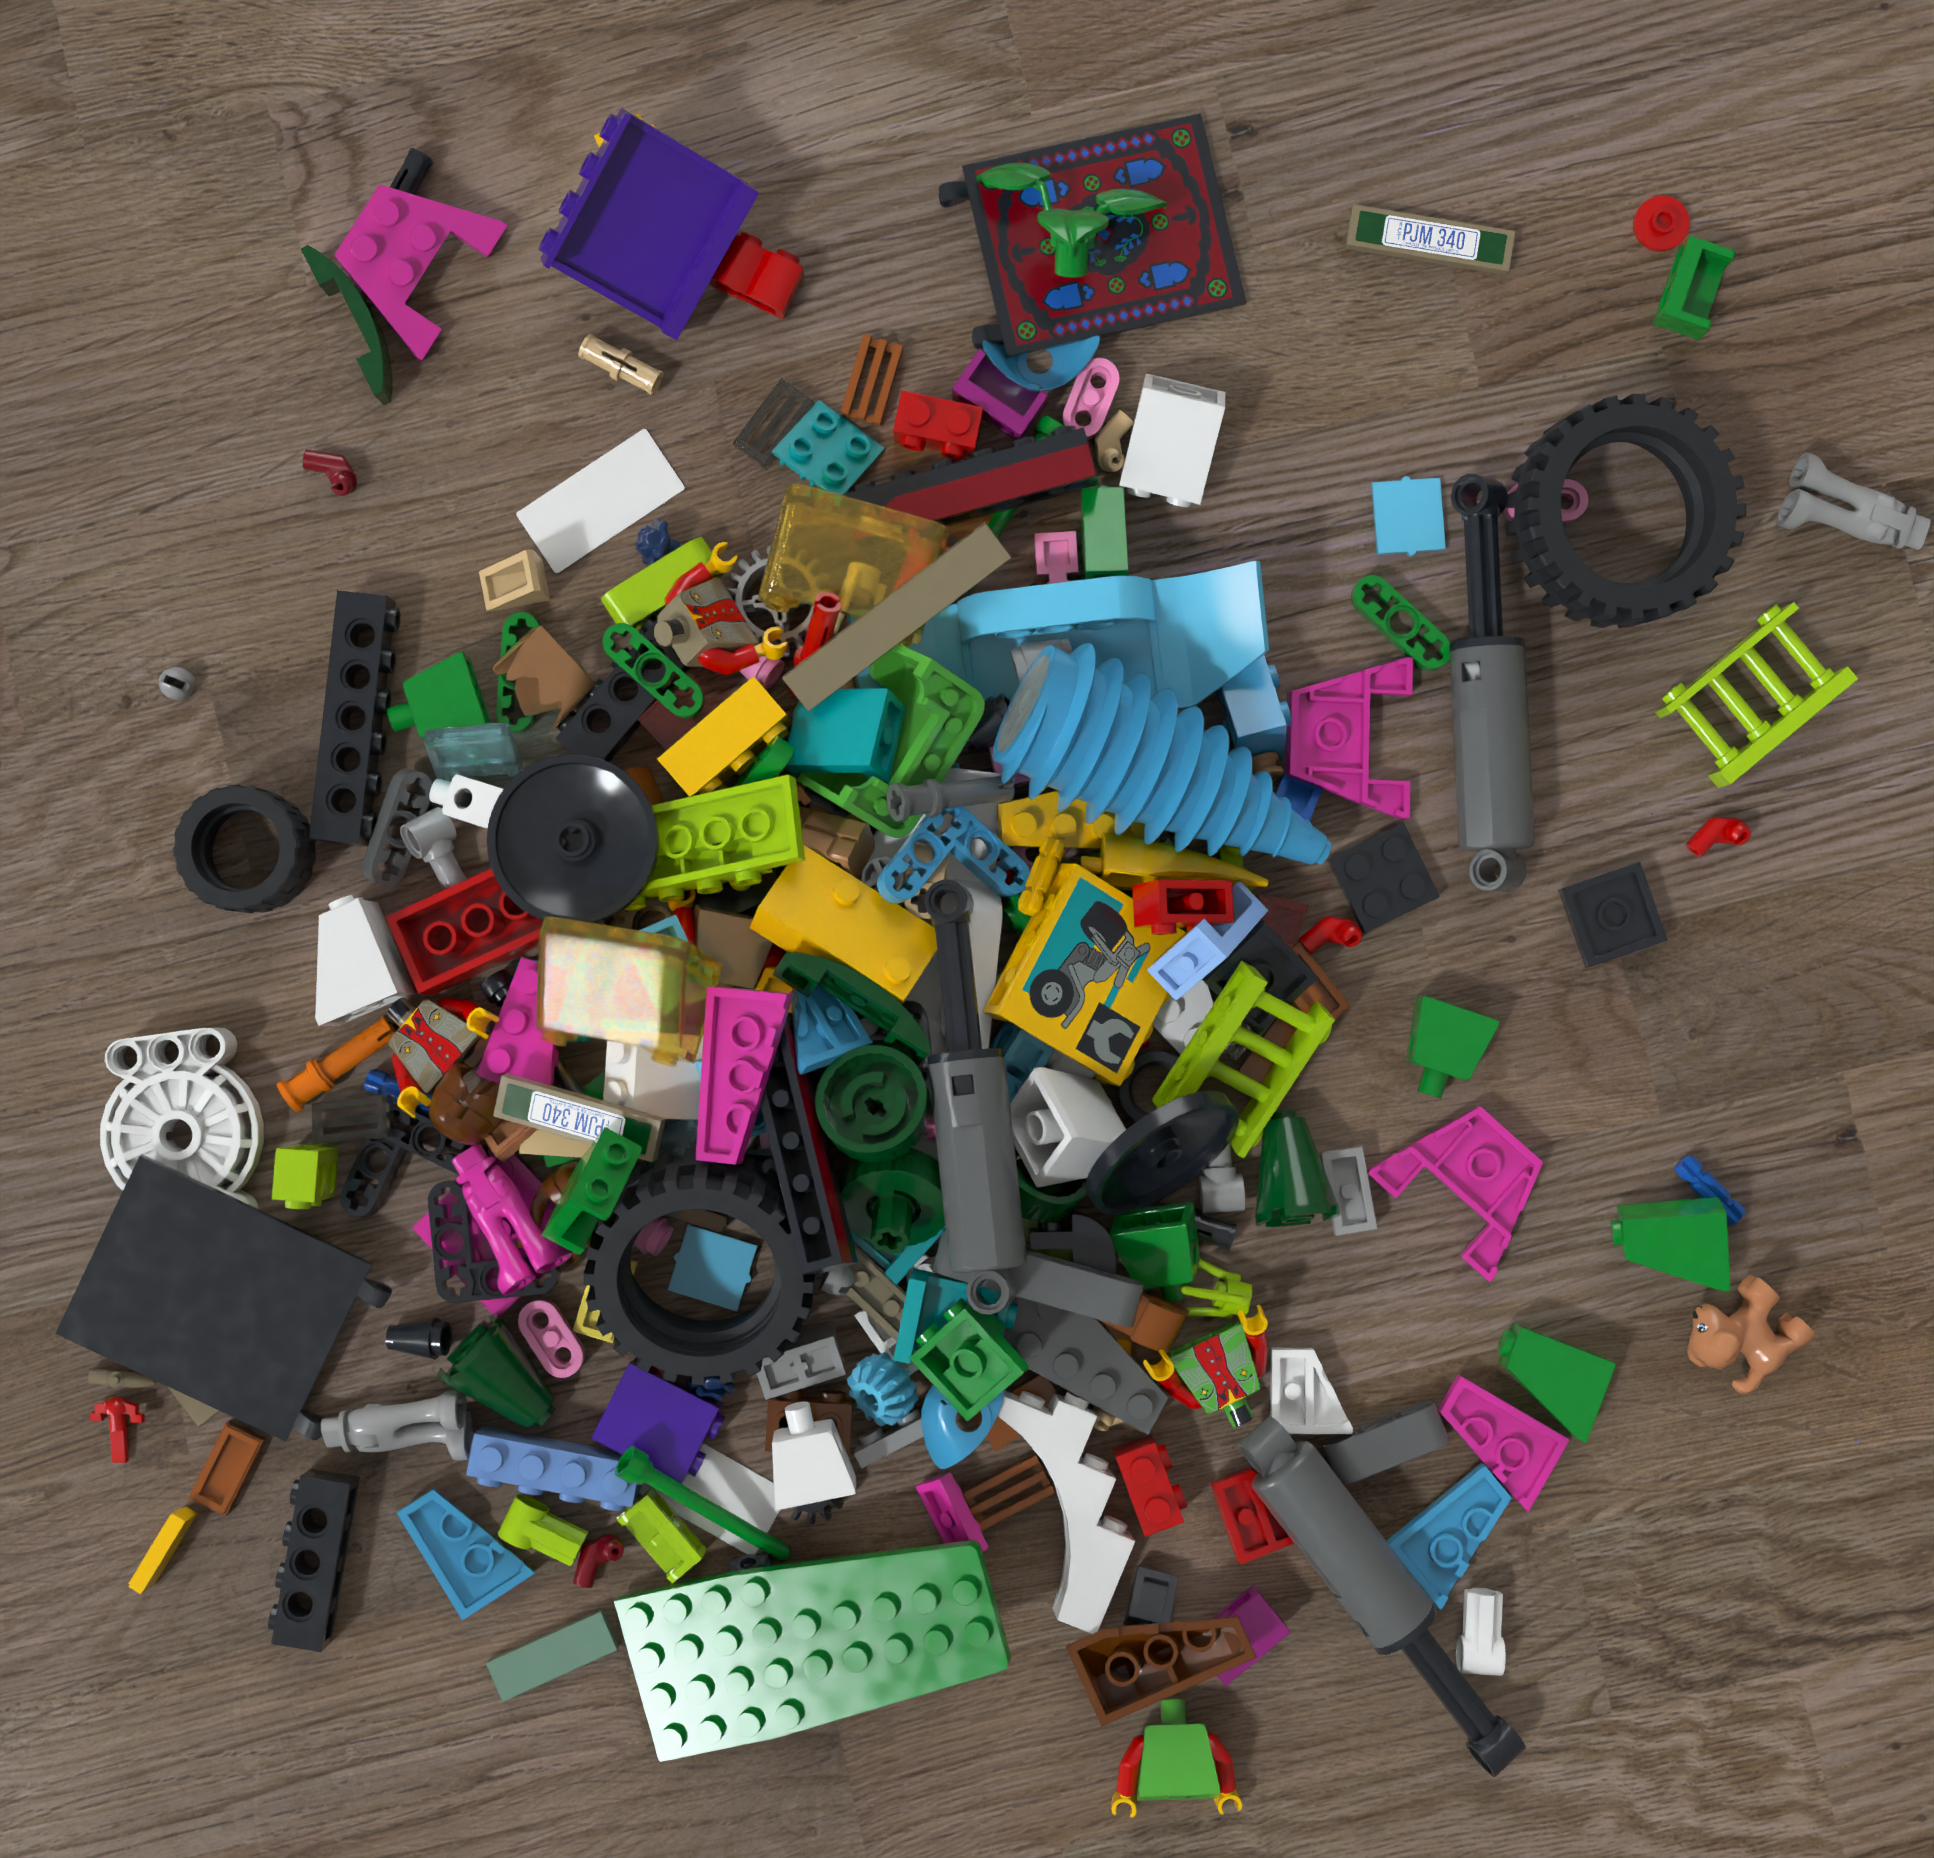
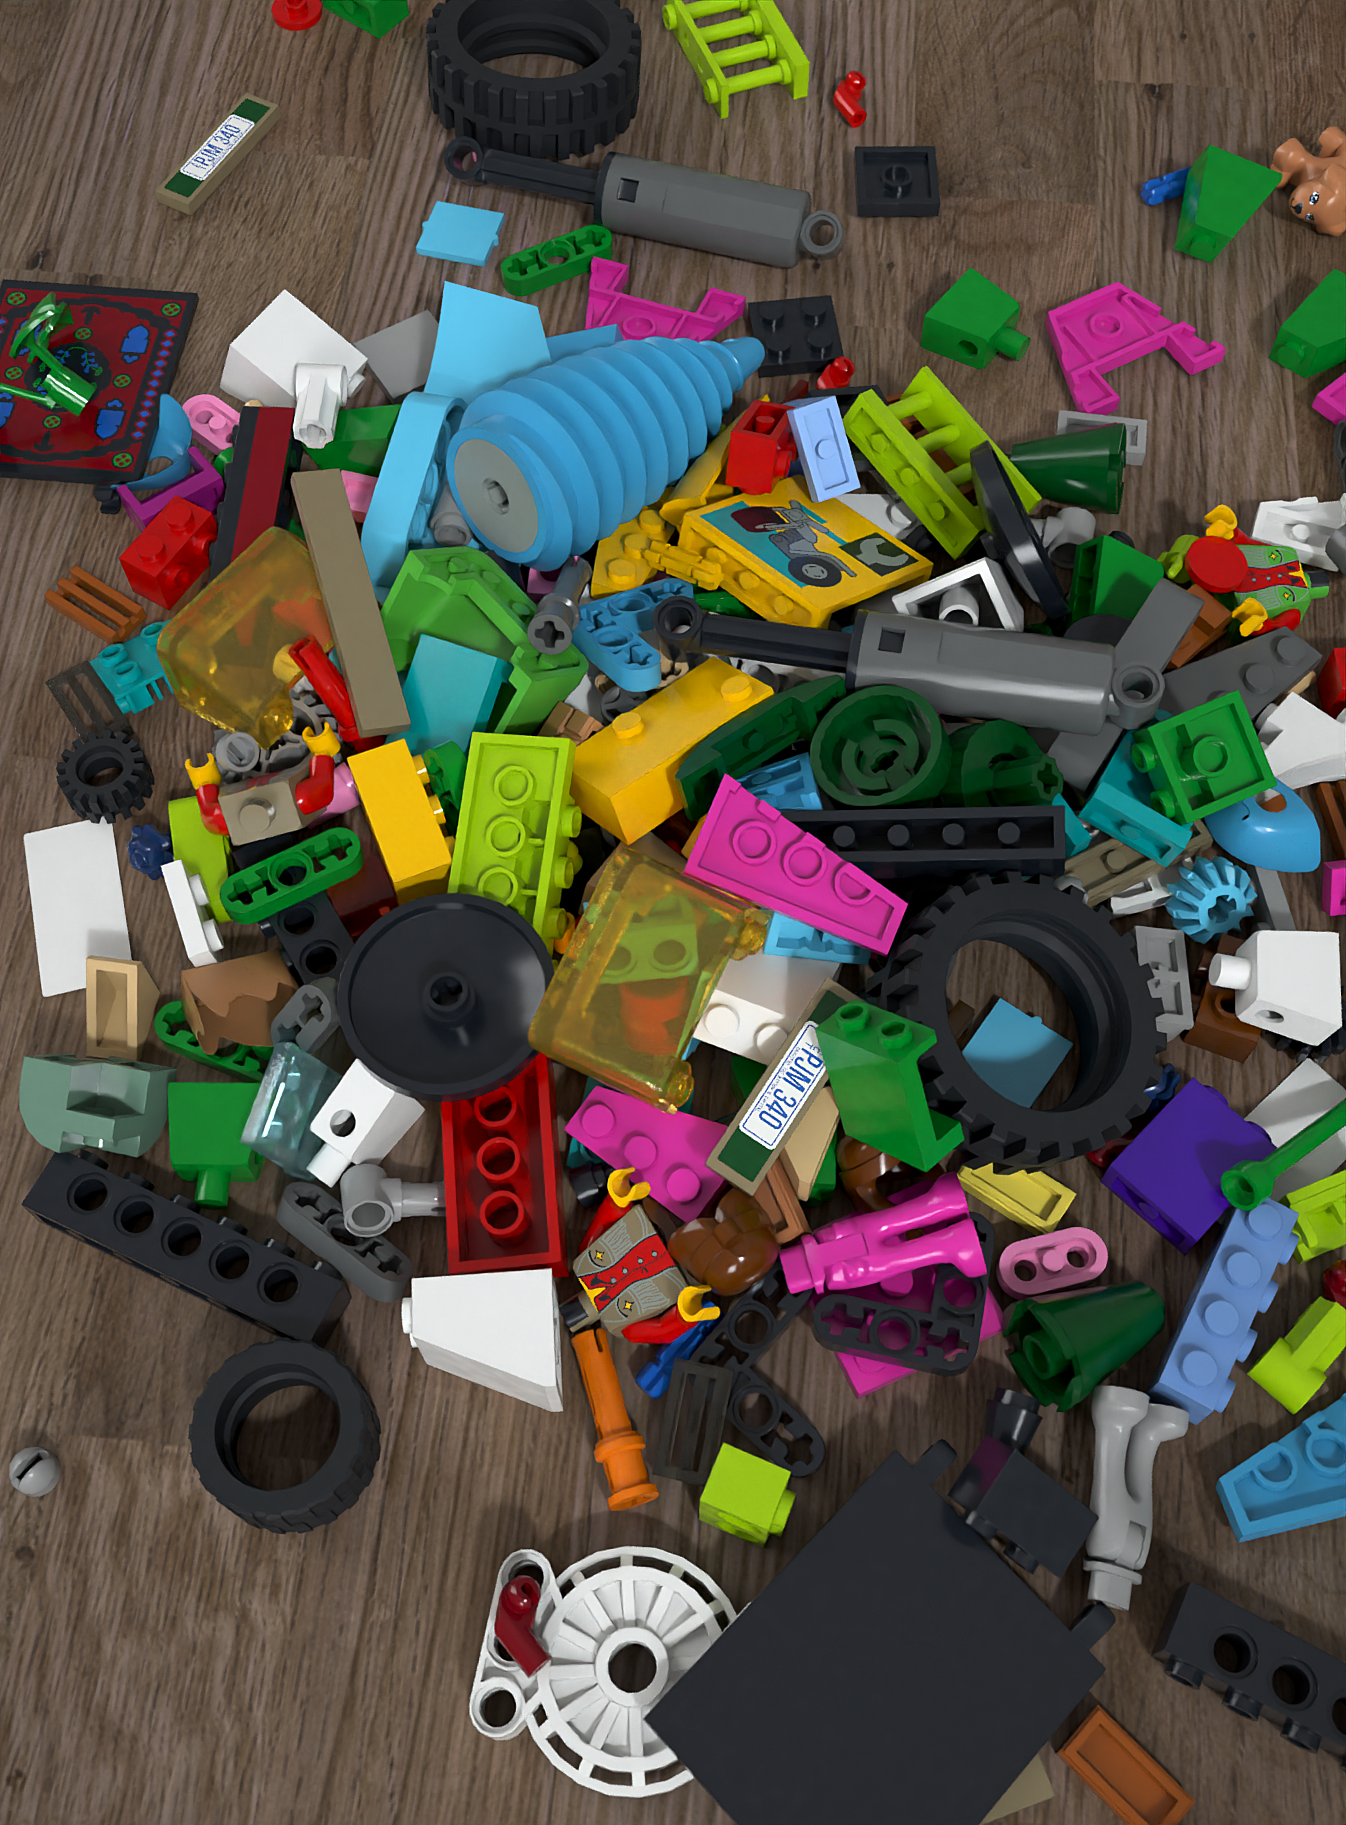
camera: 70 degrees left, 25 degrees down
(170, 1052) = (516, 1621): none -> dark red arm
(360, 1360) = (1023, 1507): none -> black brick
(432, 604) = (94, 1102): none -> sand green brick
(540, 735) = (303, 1011): none -> dark grey beam
(587, 615) = (188, 899): none -> white wing
(700, 449) = (98, 756): none -> black tyre
(734, 575) = (242, 746): none -> light grey hinge
(1127, 487) = (319, 395): none -> white piece
(1211, 1325) = (1216, 564): none -> red piece
(1233, 529) = (401, 355): none -> light grey tile

